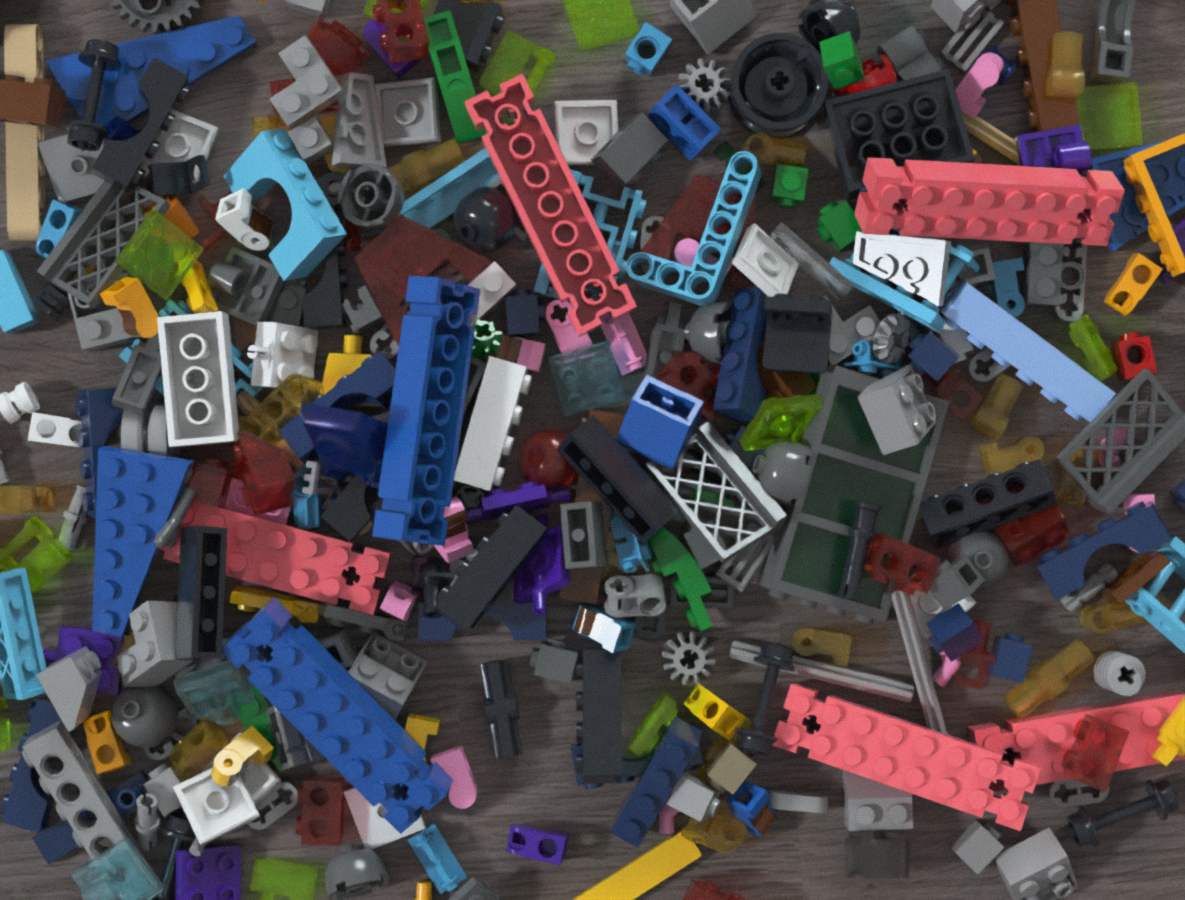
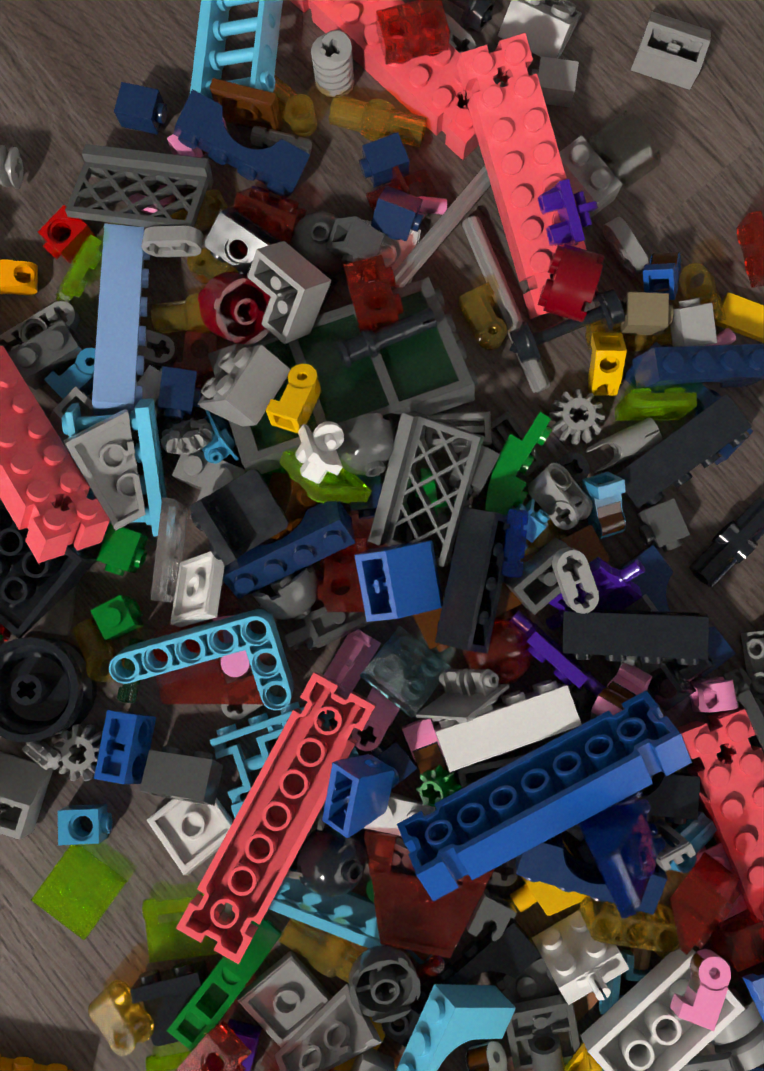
camera: 115 degrees left, 5 degrees down
(204, 426) = (704, 991): none -> bright pink leg
(523, 276) = (357, 793): none -> blue torso
(536, 409) = (464, 695): none -> light grey hinge
(561, 560) = (568, 583): none -> light grey beam
(624, 529) = (515, 543): none -> clear blue axle
(638, 684) = (630, 442): none -> light grey piece
(724, 56) = (42, 754): none -> light grey axle
(794, 721) = (573, 282): none -> dark red brick
(801, 430) = (319, 450): none -> white hips
(838, 751) = (562, 199): none -> dark purple hips
(855, 443) = (297, 400): none -> yellow leg
(948, 503) = (294, 290): none -> light grey brick
(968, 450) = (234, 308): none -> dark red brick
(1060, 437) = (172, 241): none -> light grey beam

